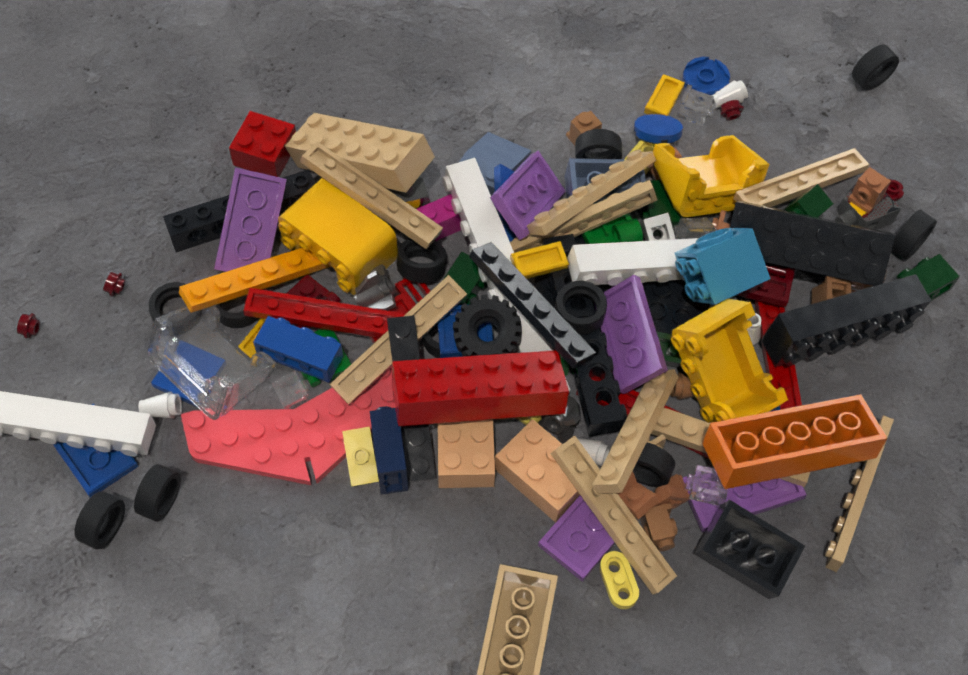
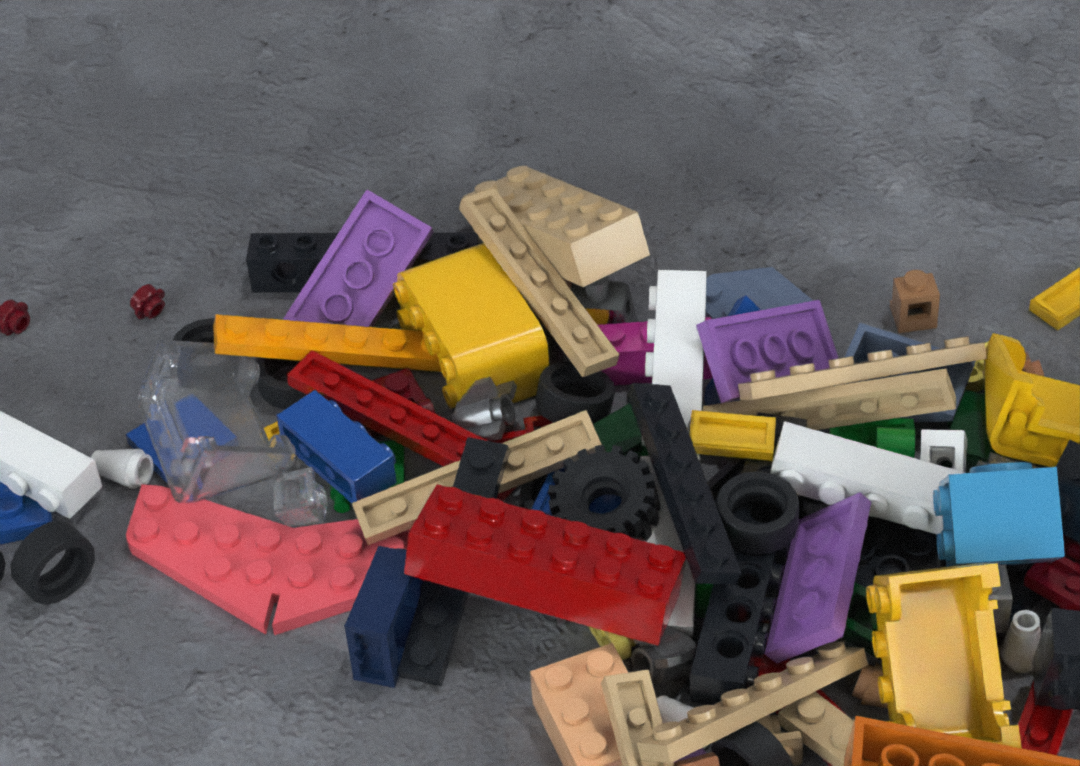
camera: 30 degrees right, 15 degrees down
(261, 144) = (433, 186): red brick -> none
(360, 456) = (332, 637): light yellow plate -> none
(466, 454) = (493, 655): light nougat brick -> none
(598, 139) = (922, 310): black tyre -> none
(658, 127) = (1034, 329): blue tile -> none

